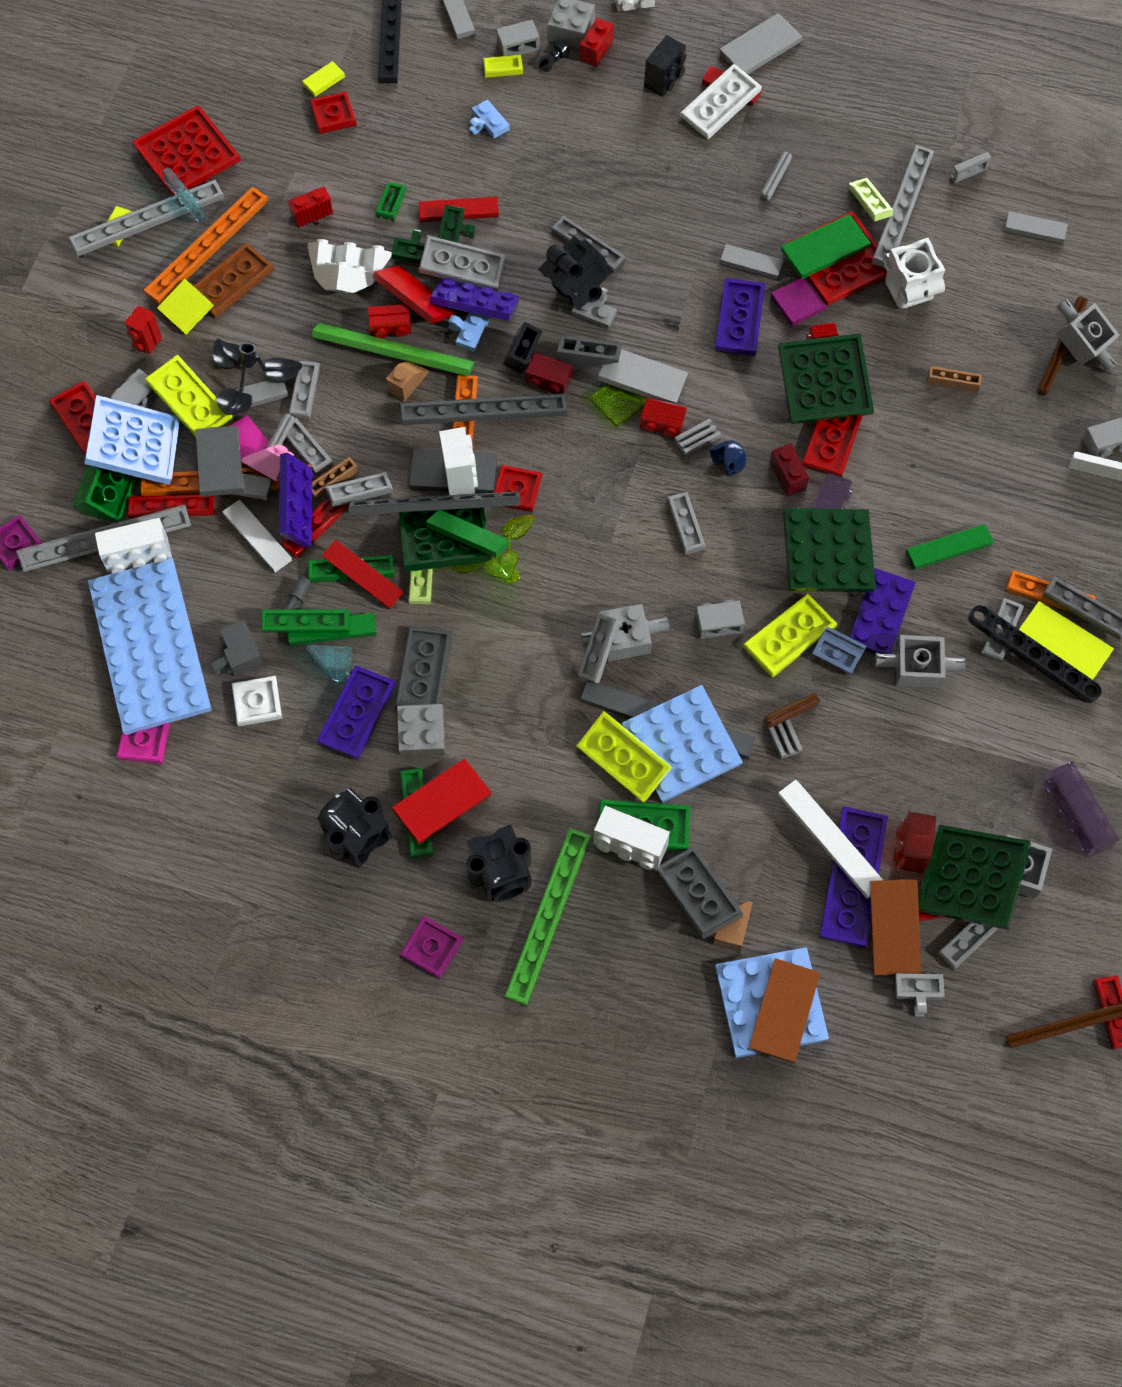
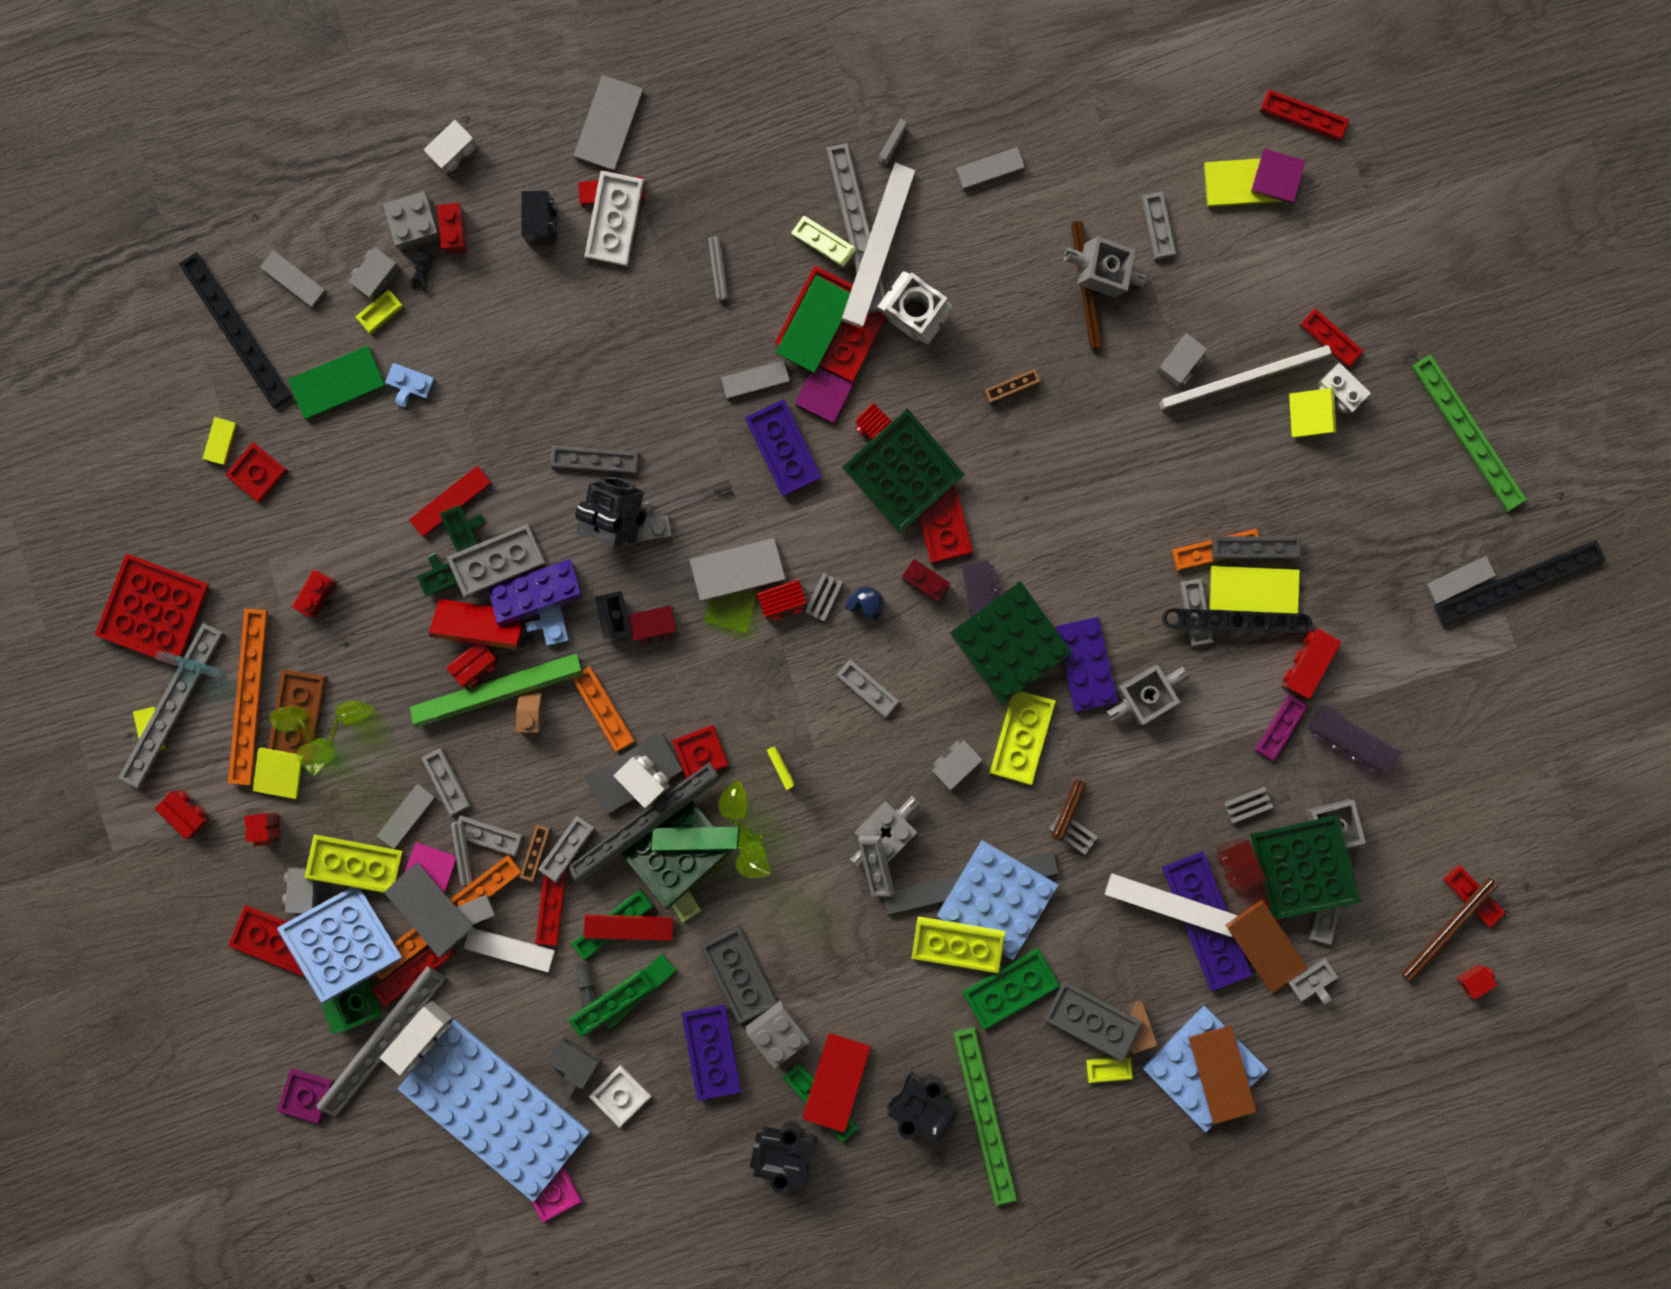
camera: 30 degrees left, 20 degrees up
(93, 291) = (182, 813): none -> red brick
(228, 355) = (356, 790): black plant -> none
(230, 306) = (319, 752): none -> clear neon green plant
(267, 461) = (473, 882): bright pink slope -> none
(295, 500) = (525, 906): dark purple plate -> none
(332, 660) = (660, 1022): clear light blue slope -> none
(345, 266) = (393, 636): white brick -> none
(386, 214) = (387, 551): green tile -> none
(431, 947) = (911, 1204): magenta tile -> none
(436, 90) = (336, 382): none -> green tile
(483, 409) = (619, 698): dark grey tile -> none
(574, 529) = (781, 767): none -> neon yellow tile
(587, 352) = (675, 582): dark grey slope -> none
(631, 838) = (1014, 1019): white brick -> none
(684, 947) = (1108, 1070): none -> neon yellow tile
(839, 650) = (1073, 727): sand blue plate -> none
(911, 222) = (878, 245): none -> white tile
(949, 546) = (1106, 561): green tile -> none
(952, 798) = (1265, 798): none -> light grey tile
(1020, 763) = (1281, 727): none -> magenta tile
(1074, 1085) = (1477, 981): none -> red brick
(1079, 725) = (1310, 663): none -> red brick

